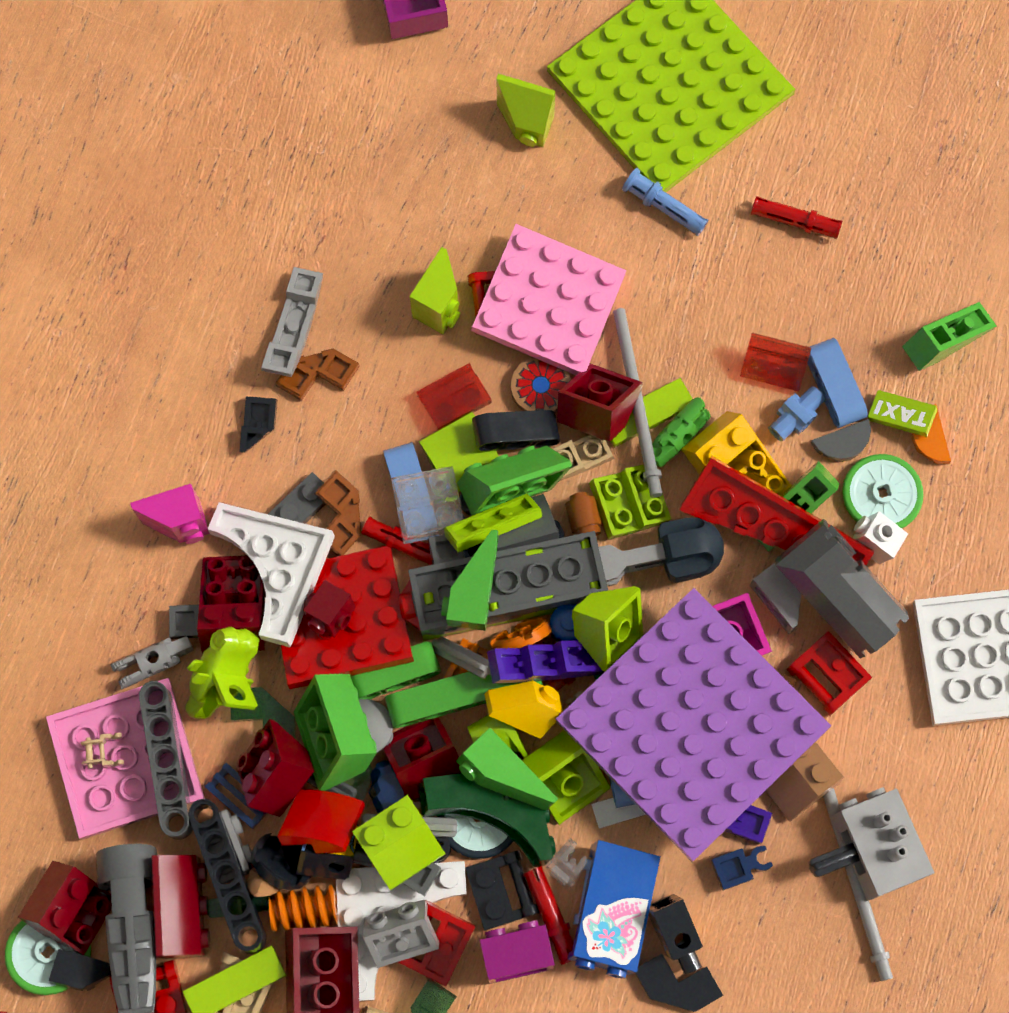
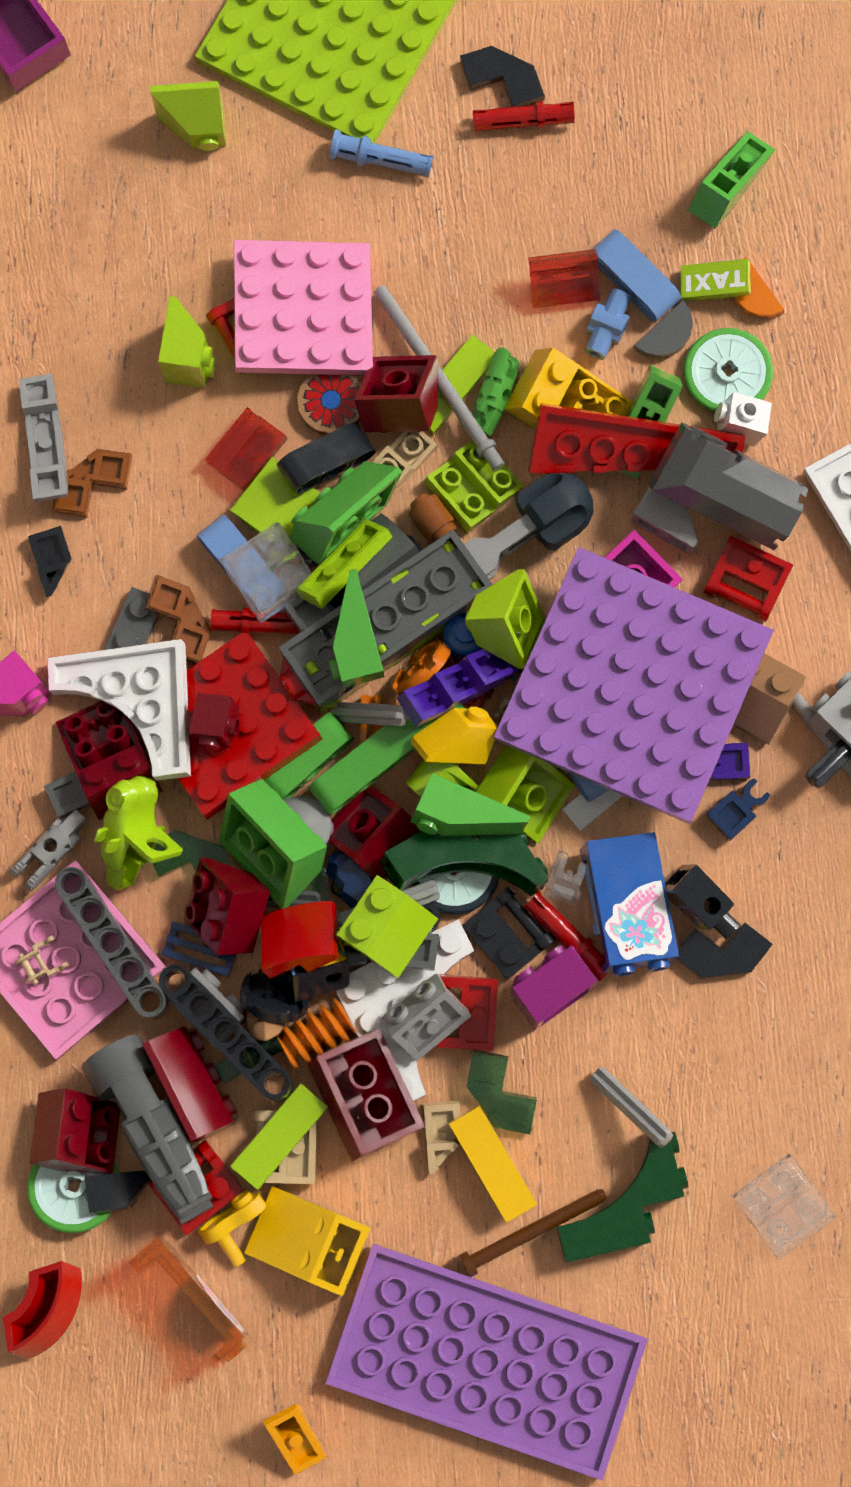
camera: 20 degrees left, 5 degrees up
(790, 167) = (494, 65): none -> black tile

